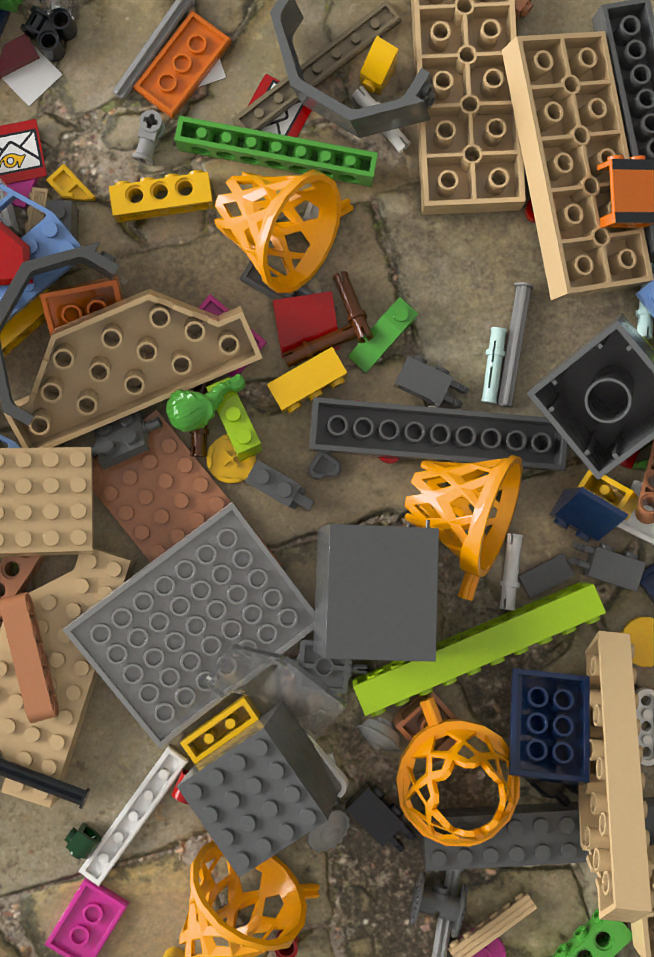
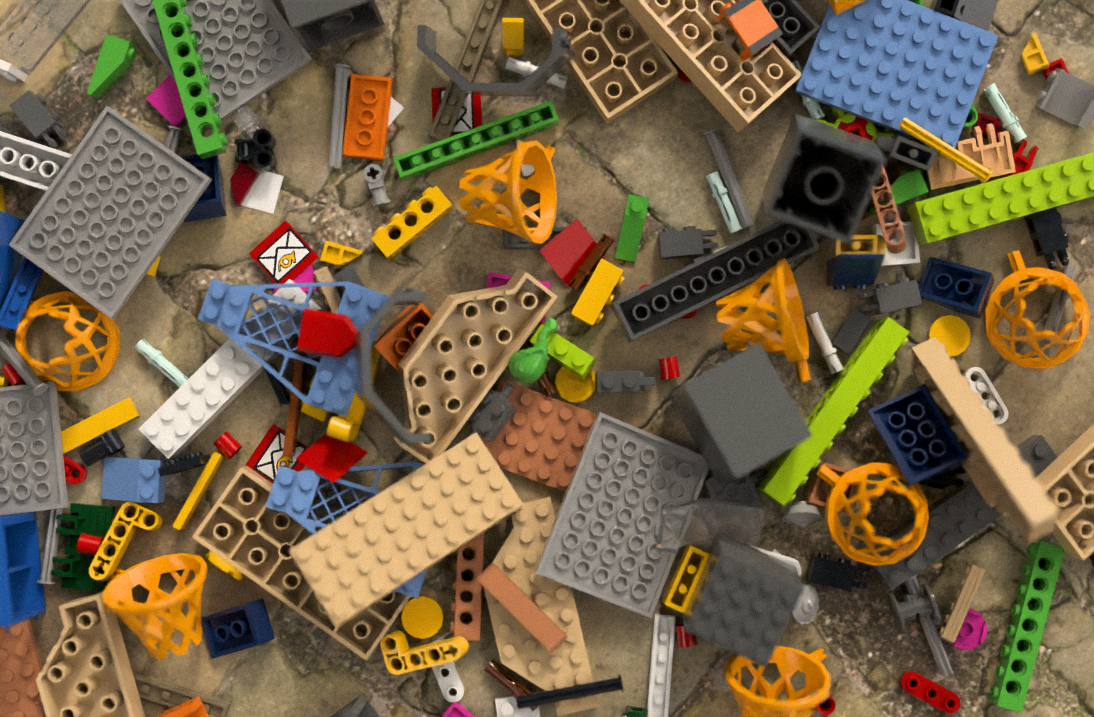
camera: 30 degrees left, 0 degrees up
(323, 466) = (644, 347): dark grey tile -> none
(335, 501) = (669, 368): none -> red beam
(357, 316) = (605, 225): reddish brown pin -> none

